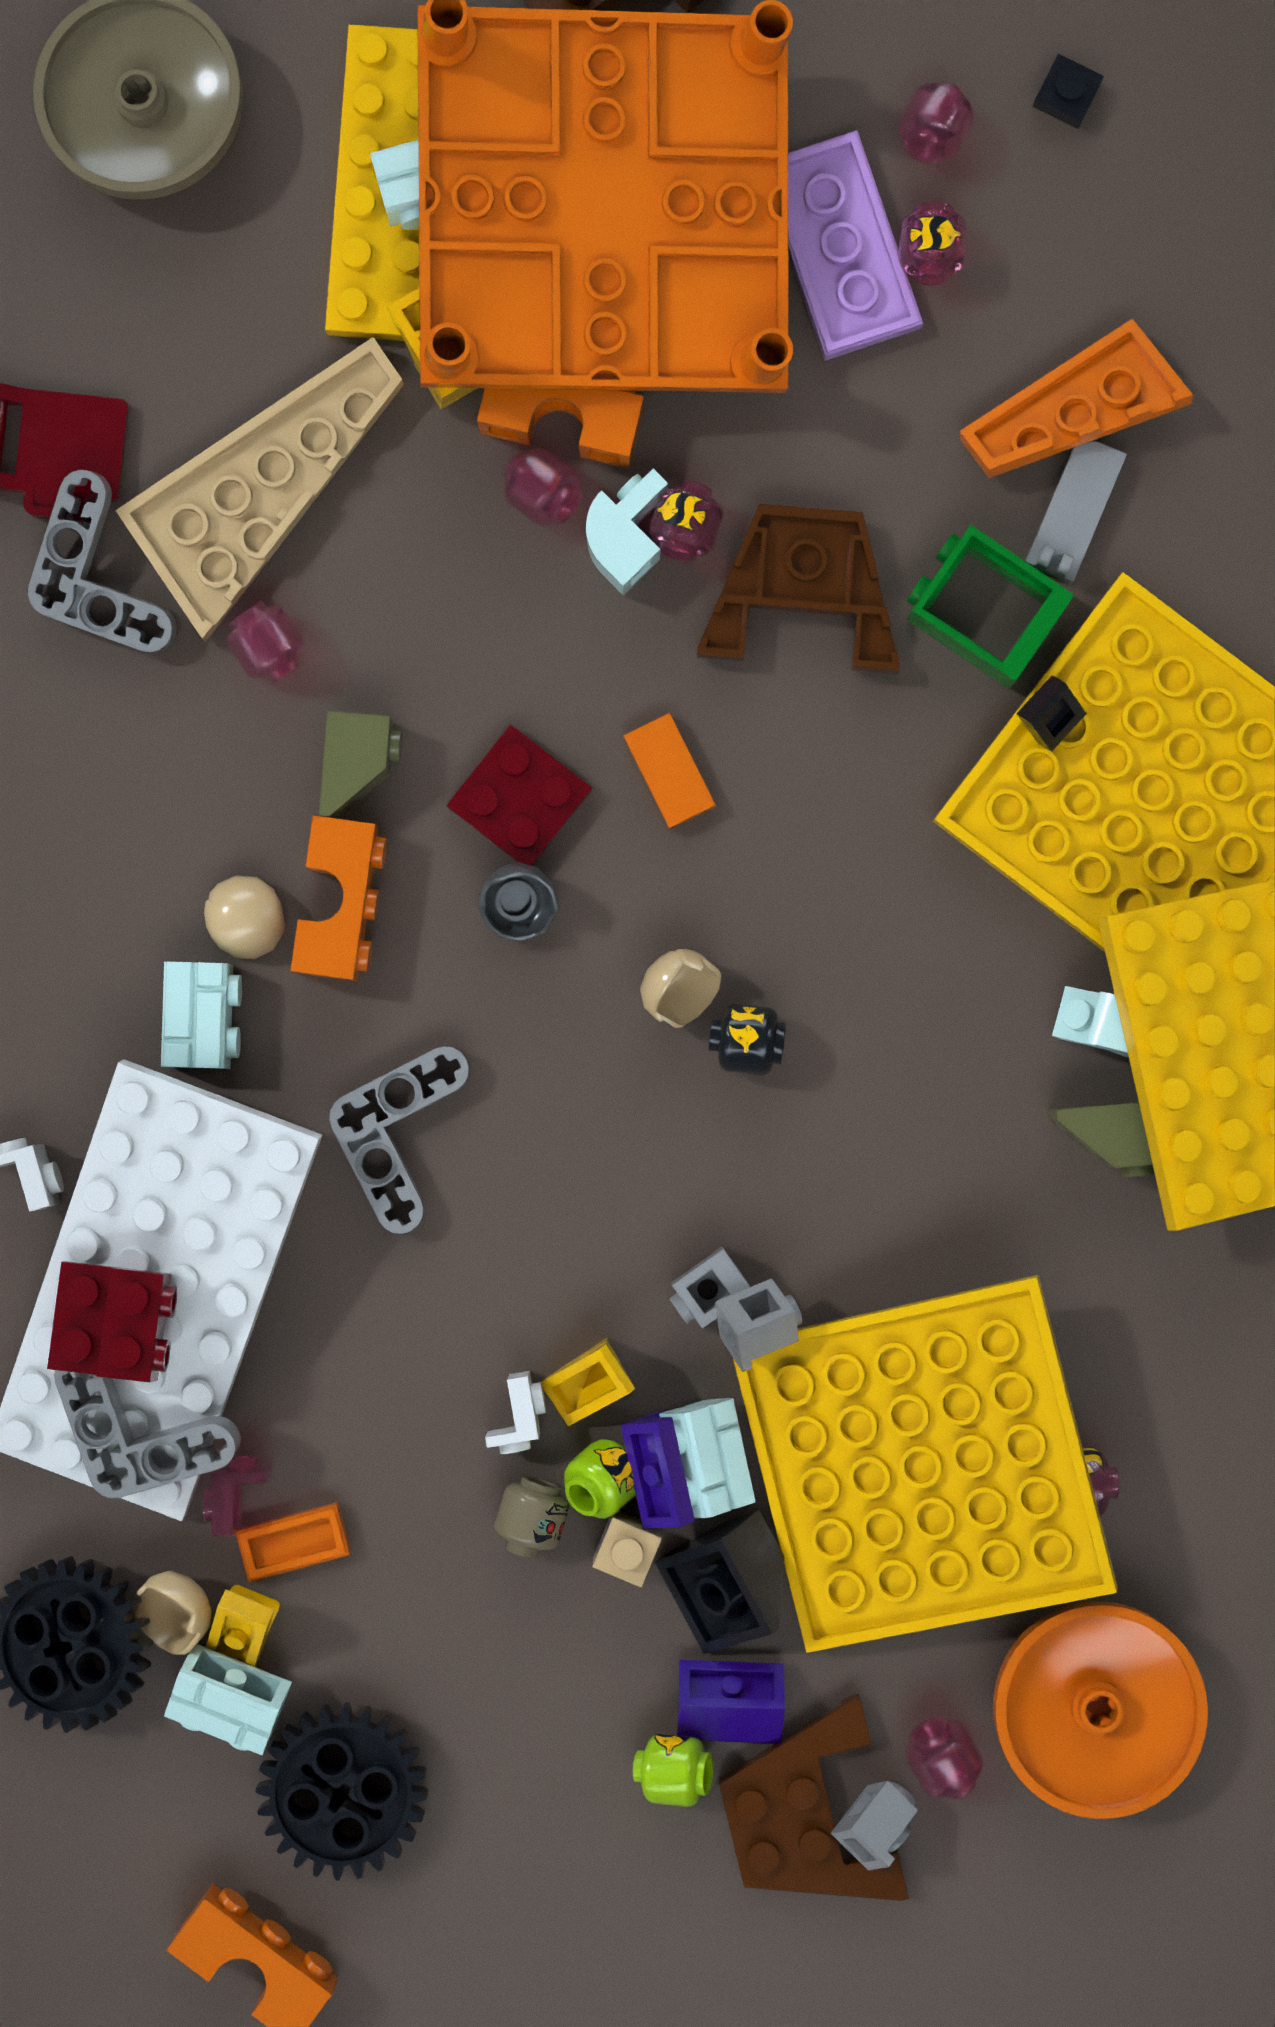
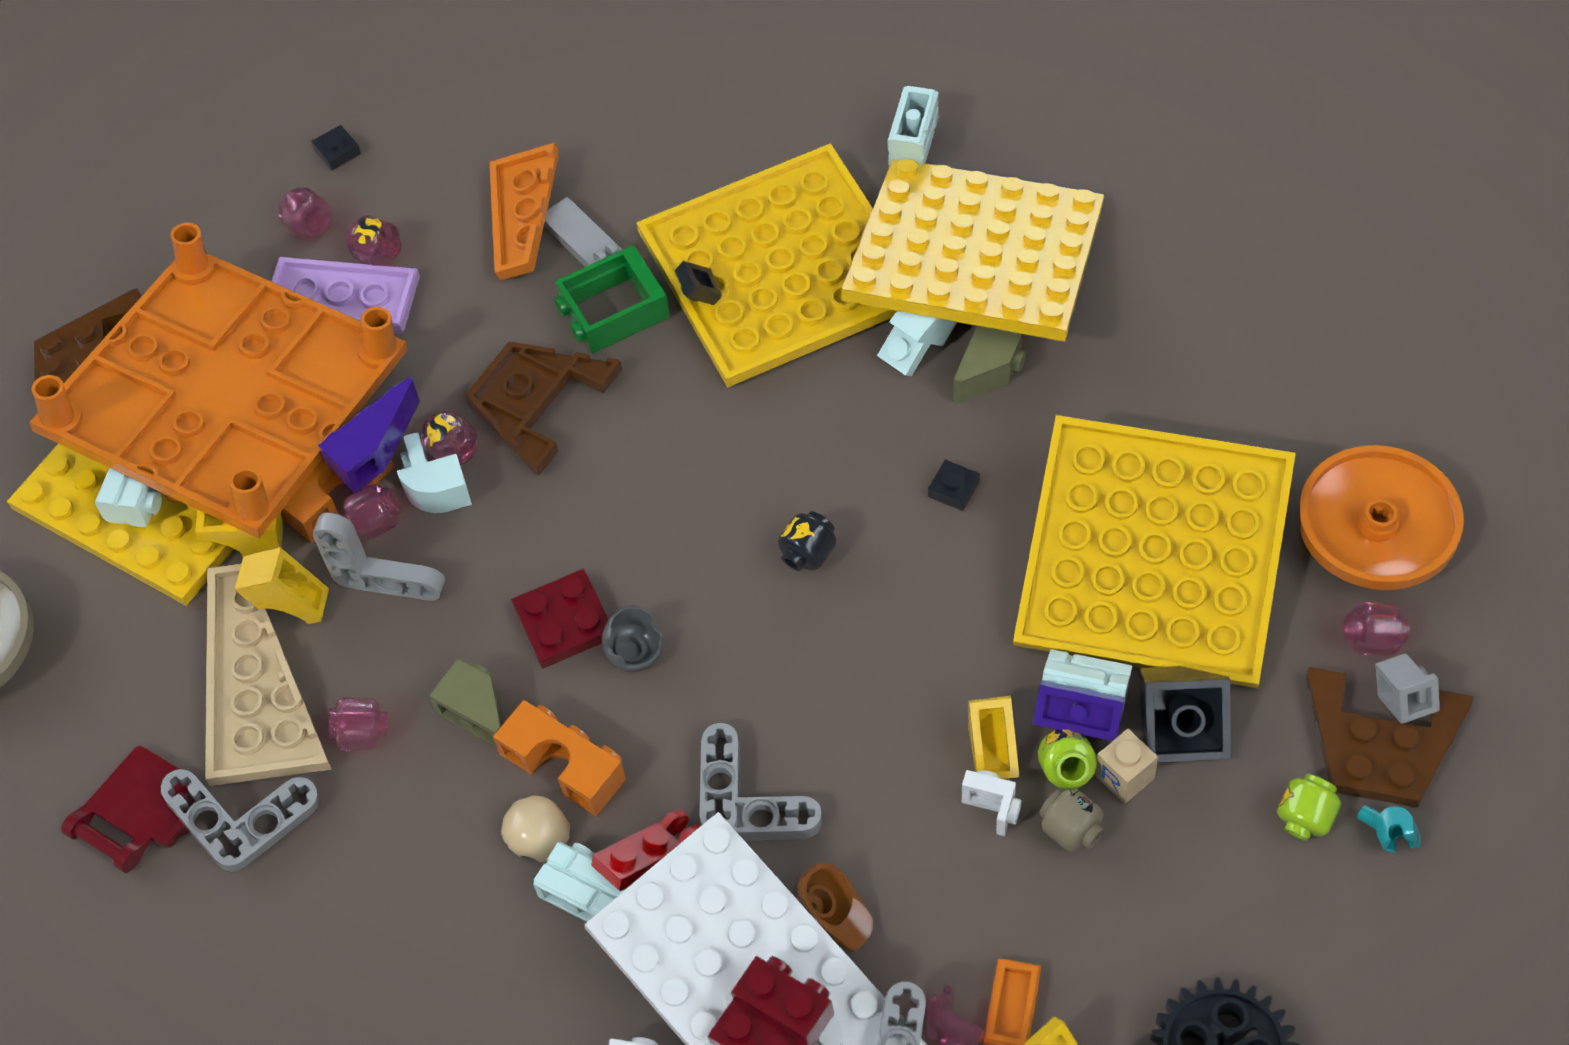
camera: 60 degrees left, 30 degrees down
(261, 1065) = (638, 853): none -> red hinge
(302, 1301) = (835, 905): none -> dark orange cap
(383, 447) = (281, 583): none -> yellow arch
(463, 547) = (354, 570): none -> light grey beam
(614, 438) = (369, 440): none -> dark purple slope
(669, 771) = (602, 521): orange tile -> none
(679, 987) = (747, 567): tan hair -> none
(698, 1865) = (1390, 825): none -> teal piece
(716, 1267) = (965, 635): light grey brick -> none
(731, 1701) = (1275, 749): dark purple panel -> none
(757, 1322) = (1003, 605): light grey brick -> none
(921, 1171) = (953, 485): none -> black plate

